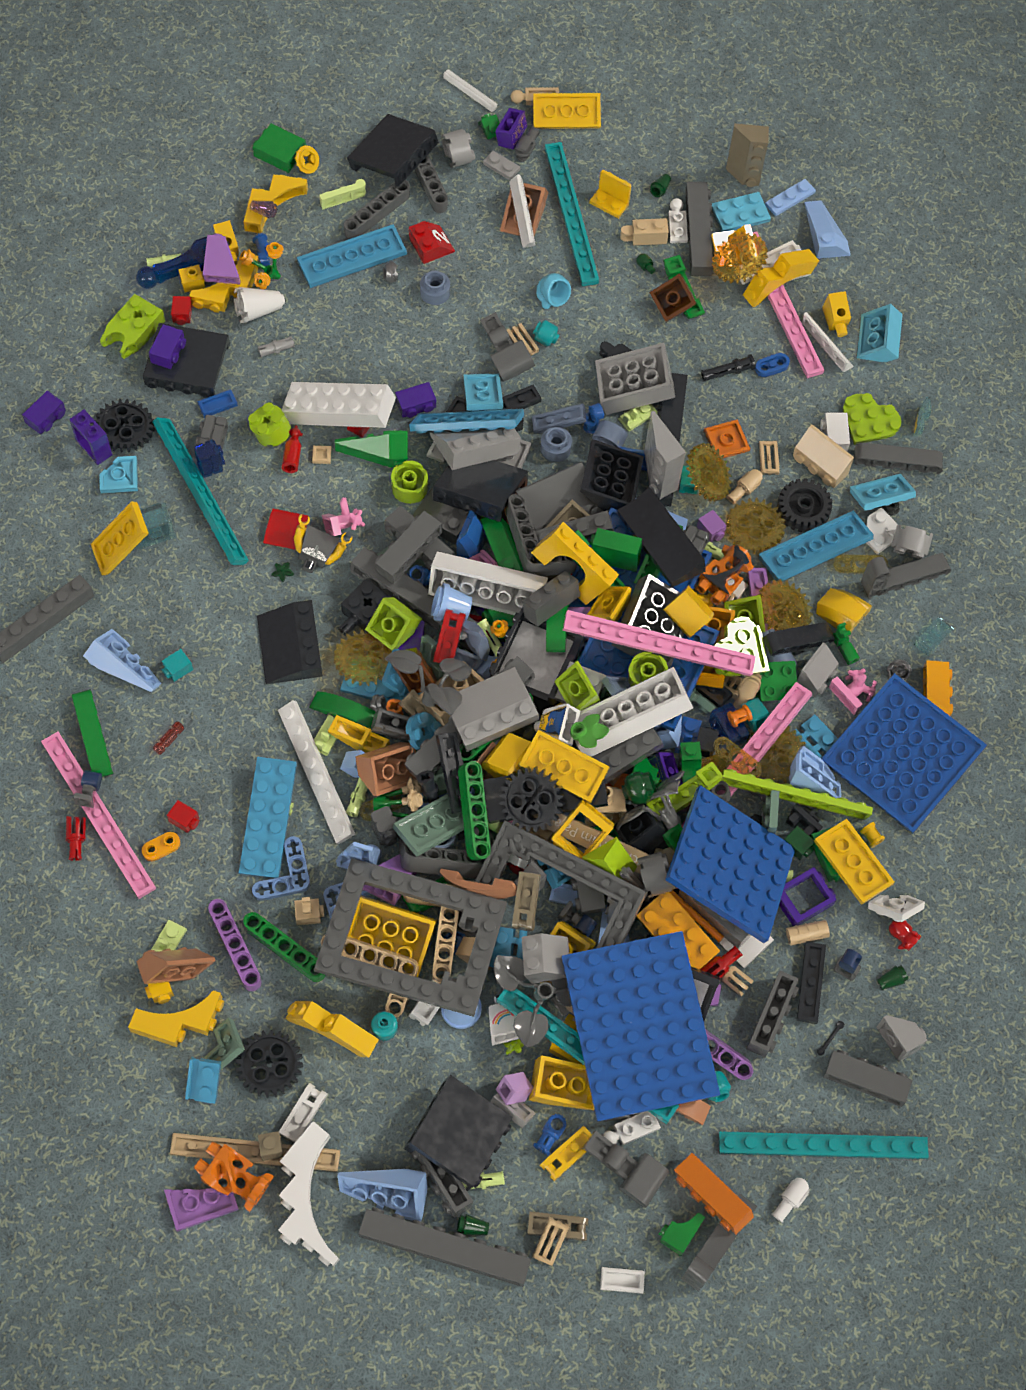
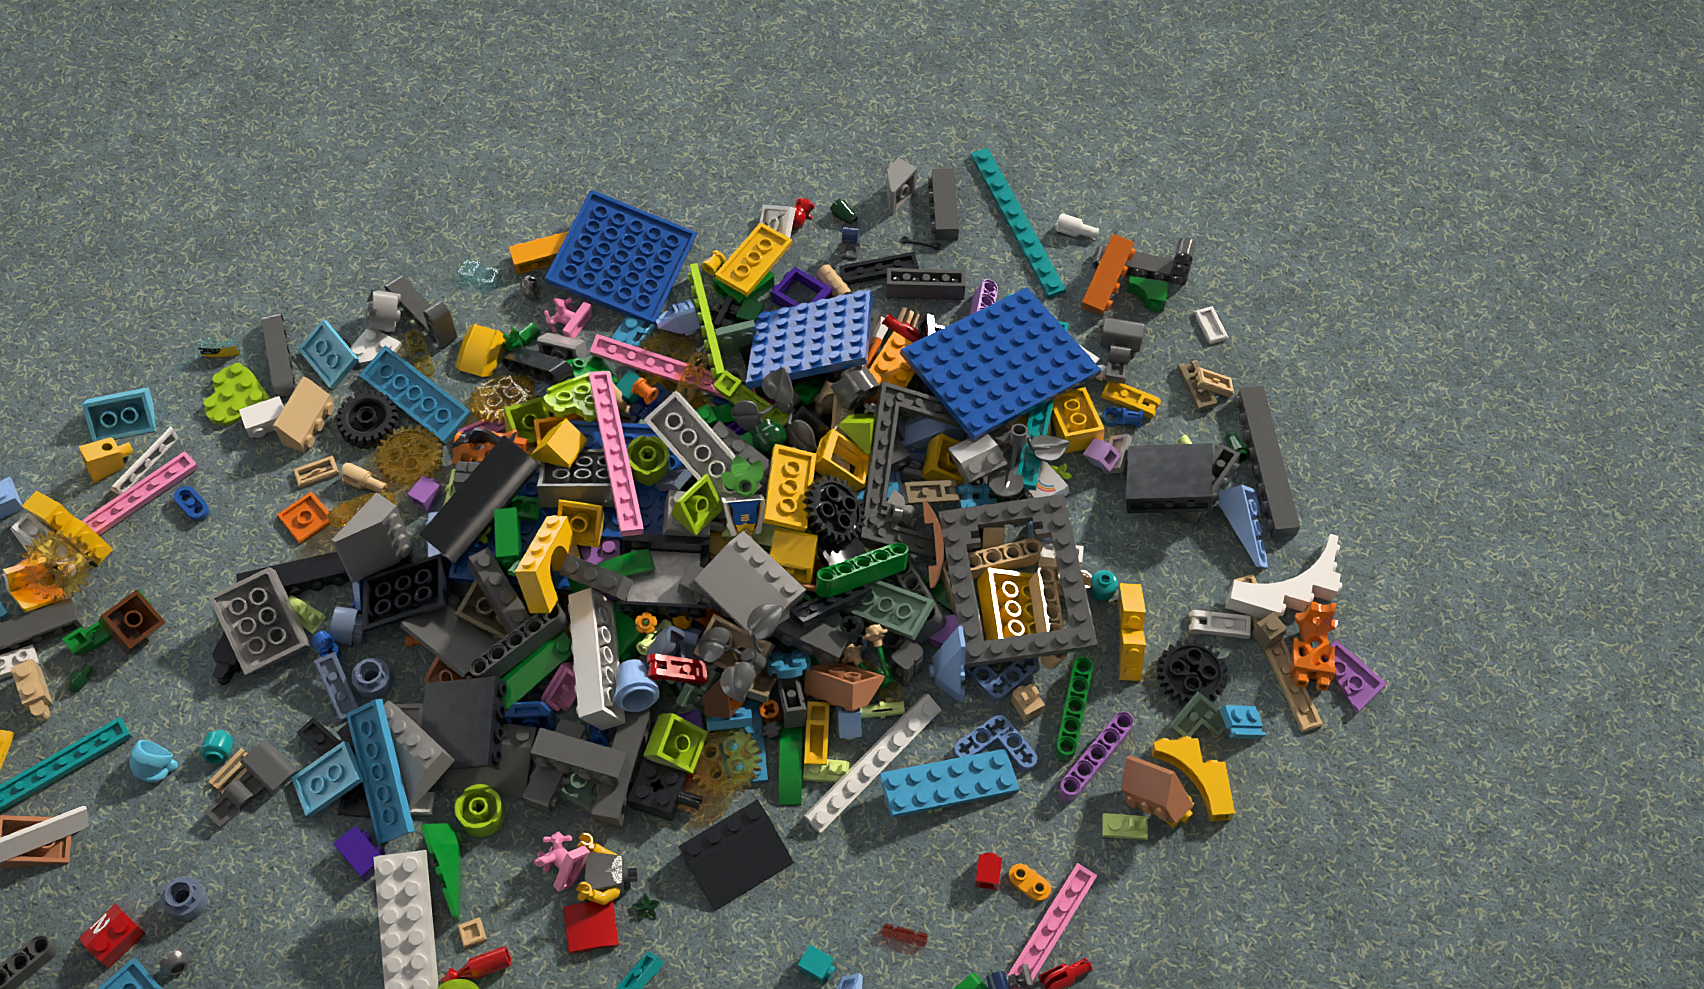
camera: 110 degrees left, 5 degrees down
(736, 366) = (205, 538): black pin -> none

